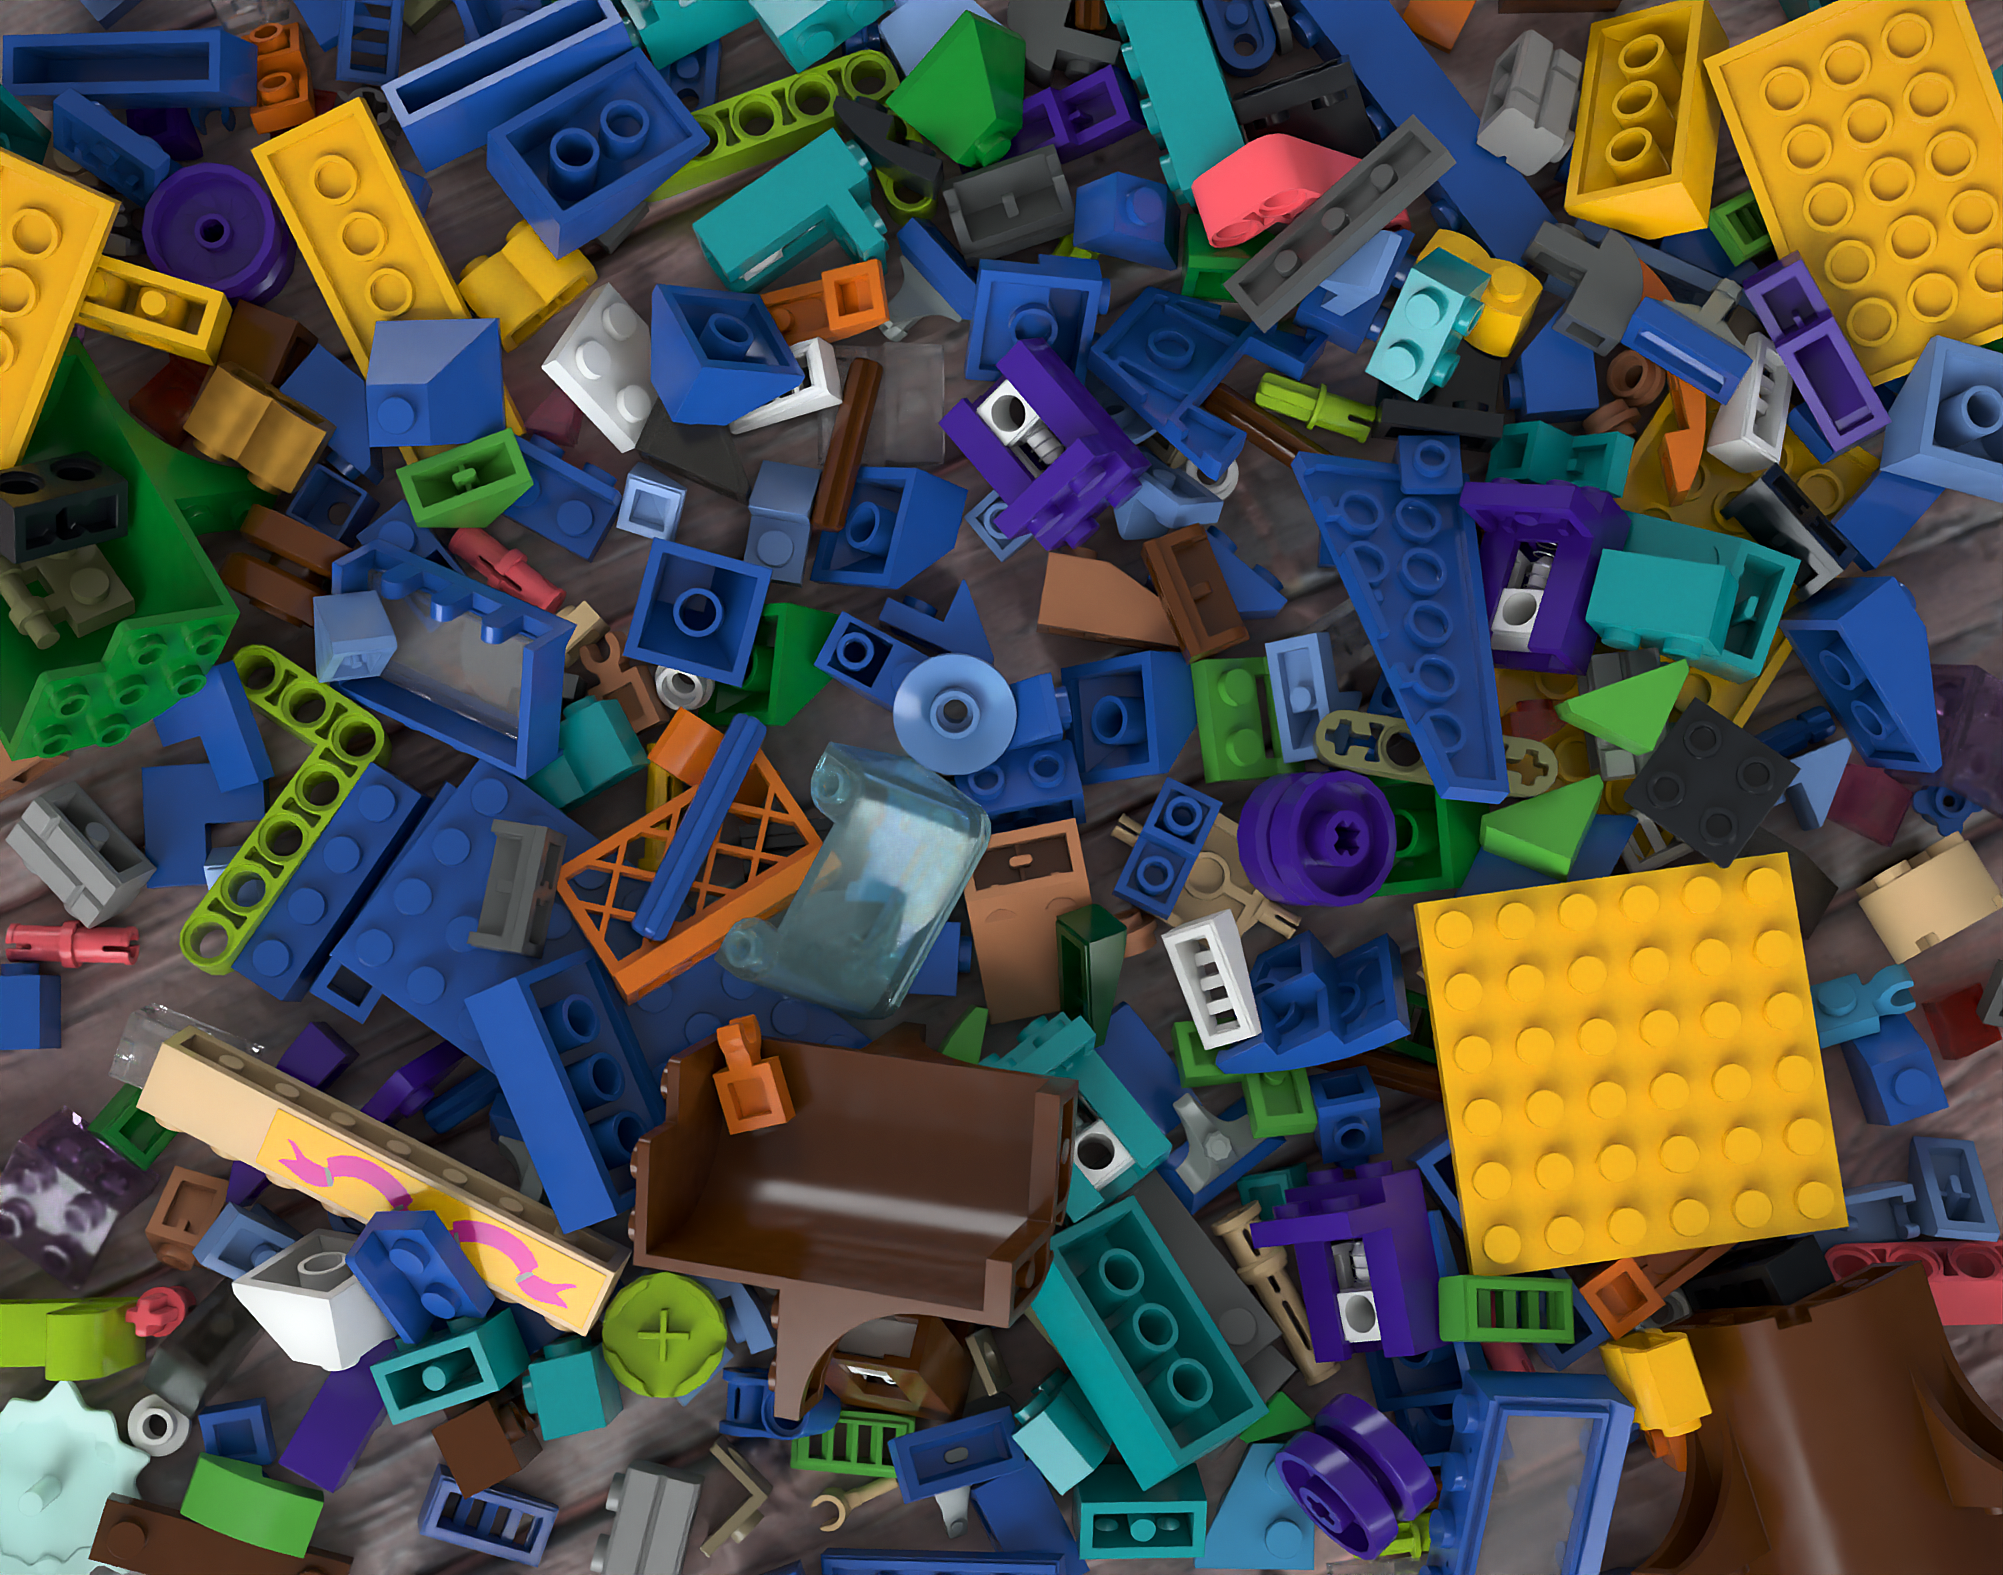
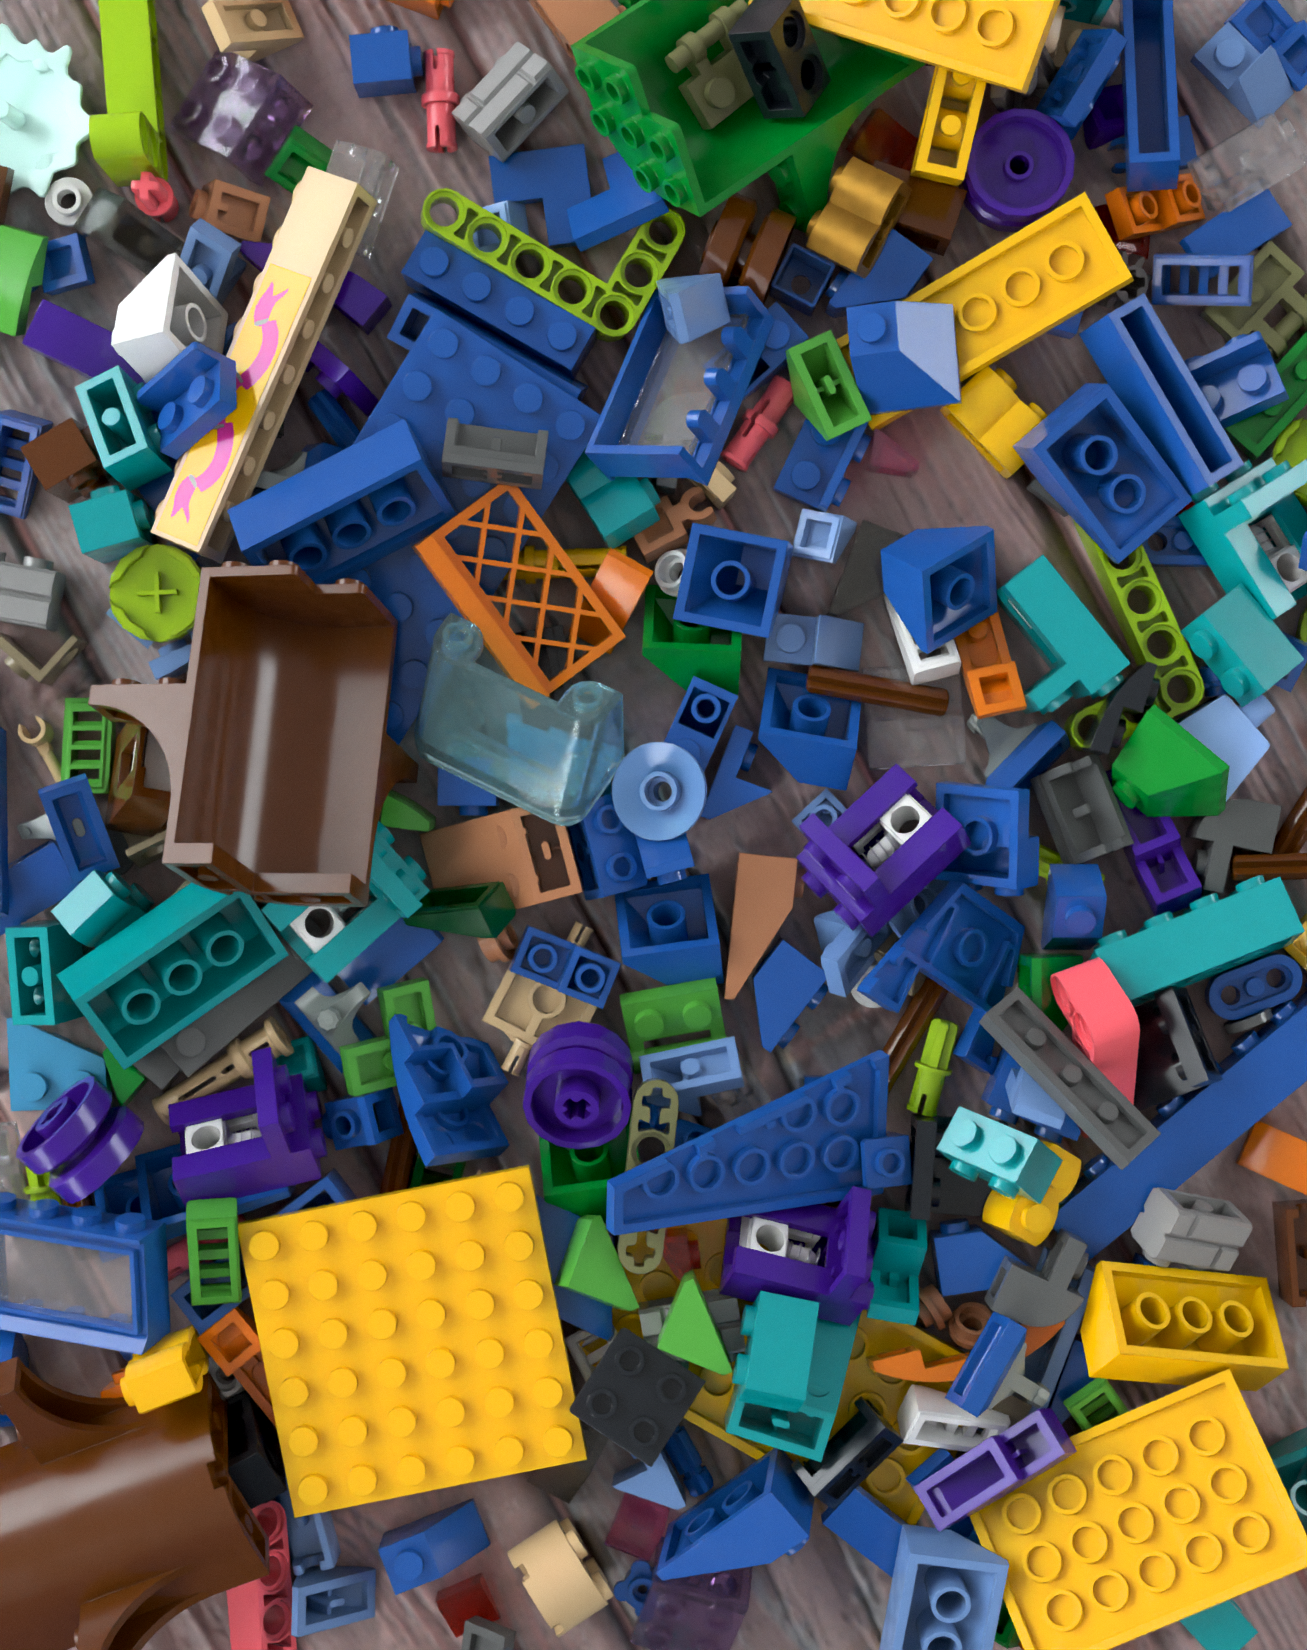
camera: 90 degrees right, 5 degrees up
(607, 366) = (929, 492): white plate -> none
(699, 827) = (555, 594): blue axle -> none
(750, 1087) = (351, 648): orange plate -> none
(752, 1408) = (102, 666): blue piece -> none
(1193, 593) = (769, 977): reddish brown hinge -> none
(1228, 954) = (483, 1018): white slope -> none
(1852, 1010) = (470, 1513): dark azure plate -> none

